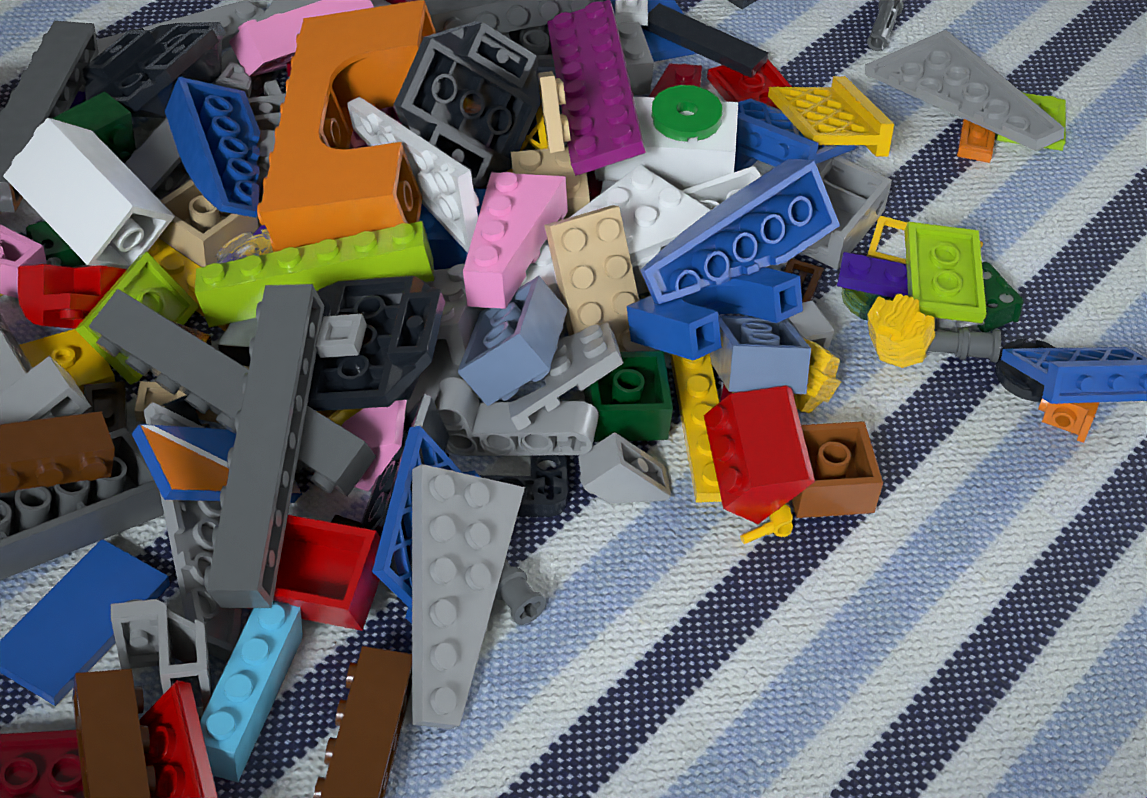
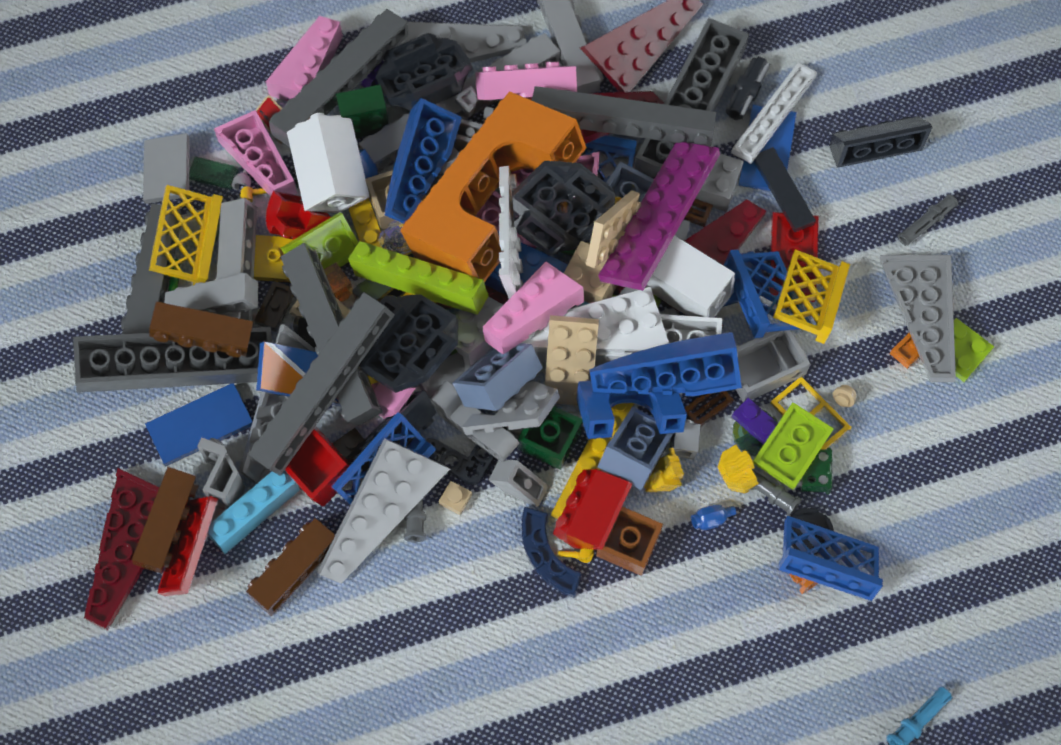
camera: 35 degrees right, 20 degrees up
(341, 335) = (393, 337): light grey plate -> none
(547, 538) = (455, 498): none -> tan plate
(680, 98) = (695, 254): green tile -> none
(737, 561) = (541, 556): none -> dark blue tile
(905, 403) = (711, 516): none -> blue plant
(950, 210) = (844, 396): none -> tan plate

